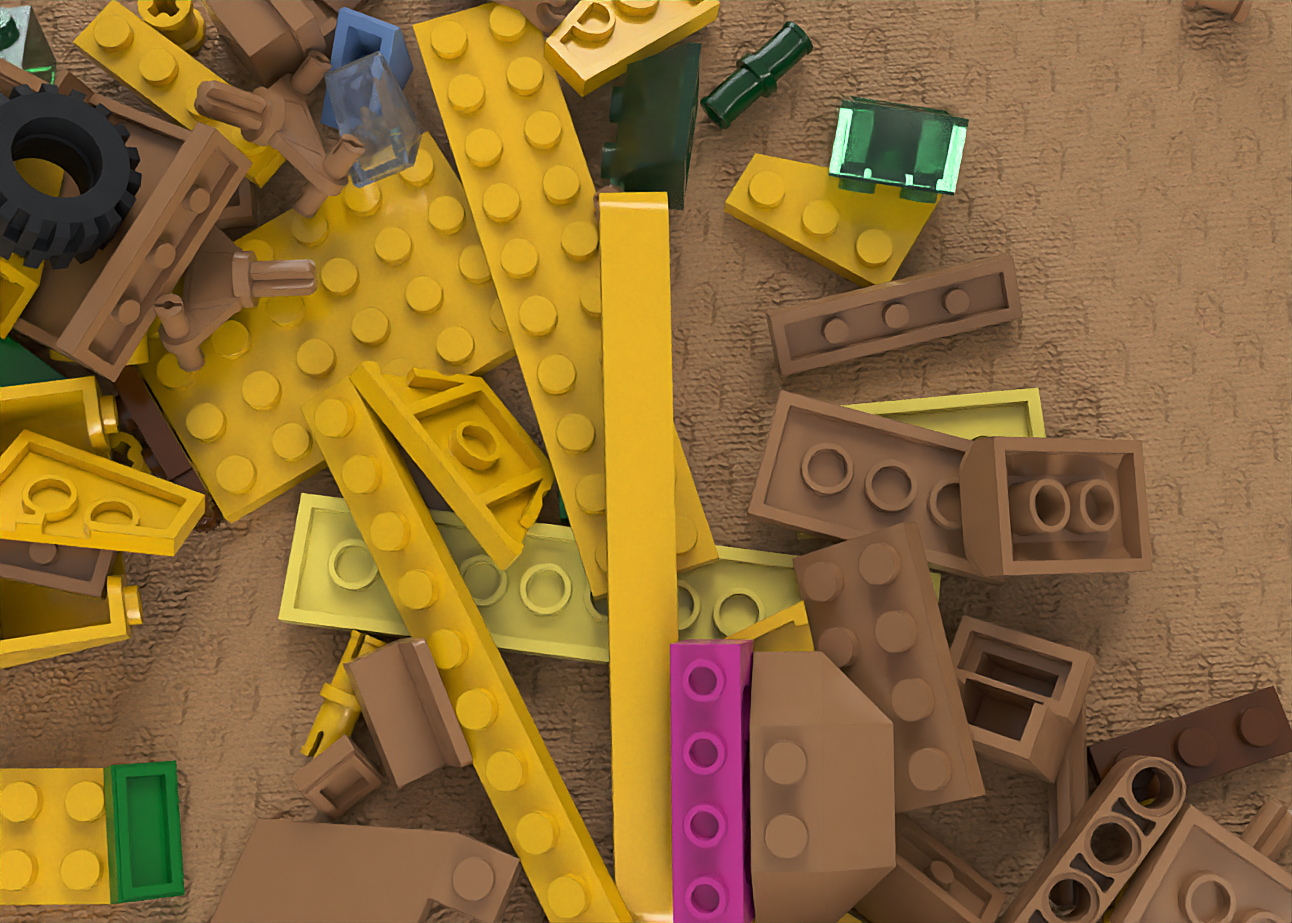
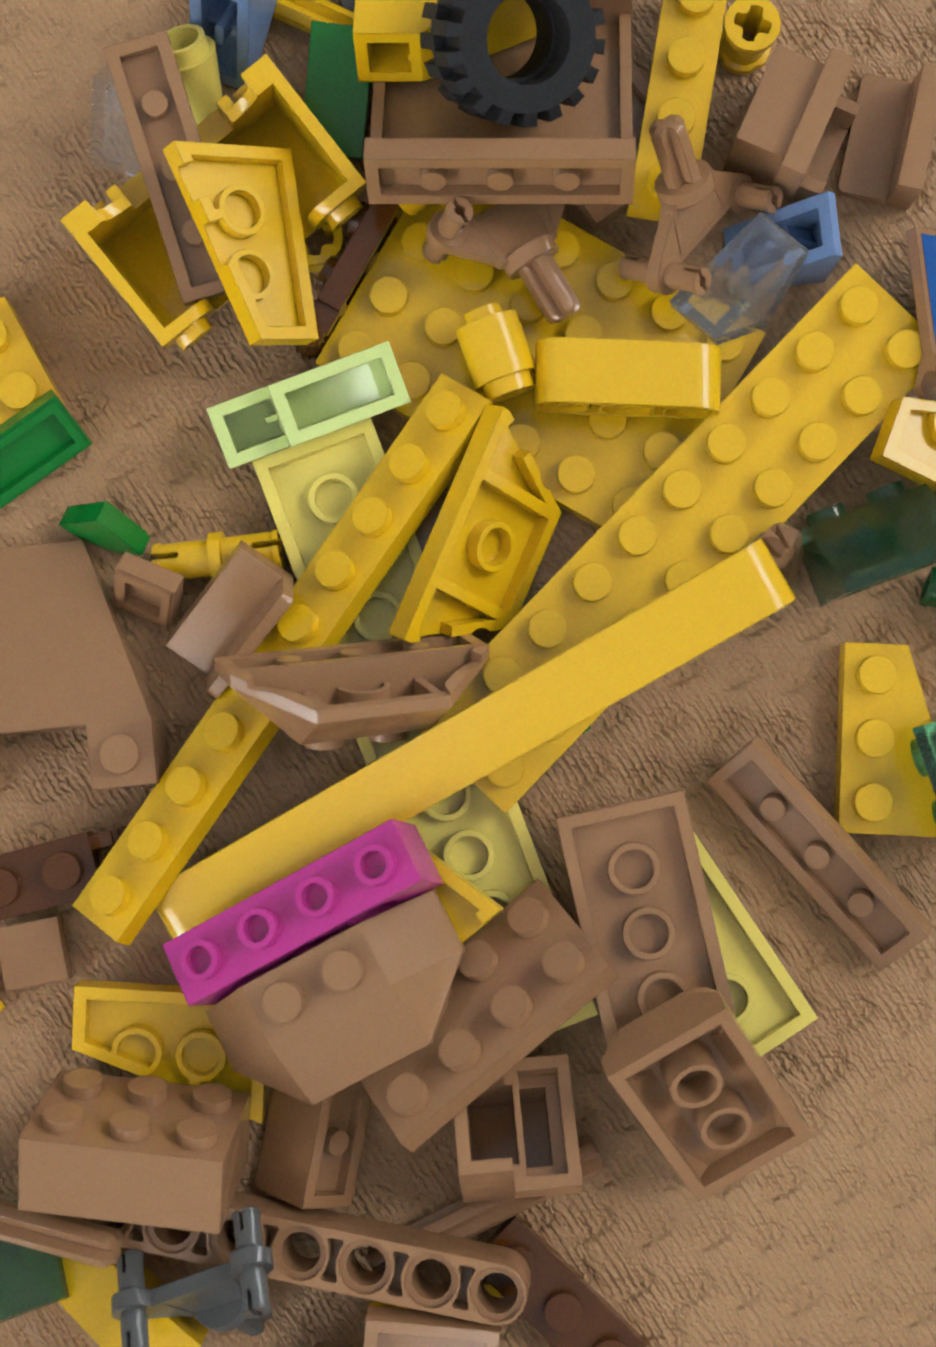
camera: 60 degrees right, 10 degrees up
(257, 543) = (308, 405): none -> yellowish green slope
(258, 789) = (105, 527): none -> green tile
(310, 350) = (496, 352): none -> yellow brick
(397, 254) = (627, 377): none -> yellow beam
(534, 623) = (356, 687): none -> medium nougat wedge

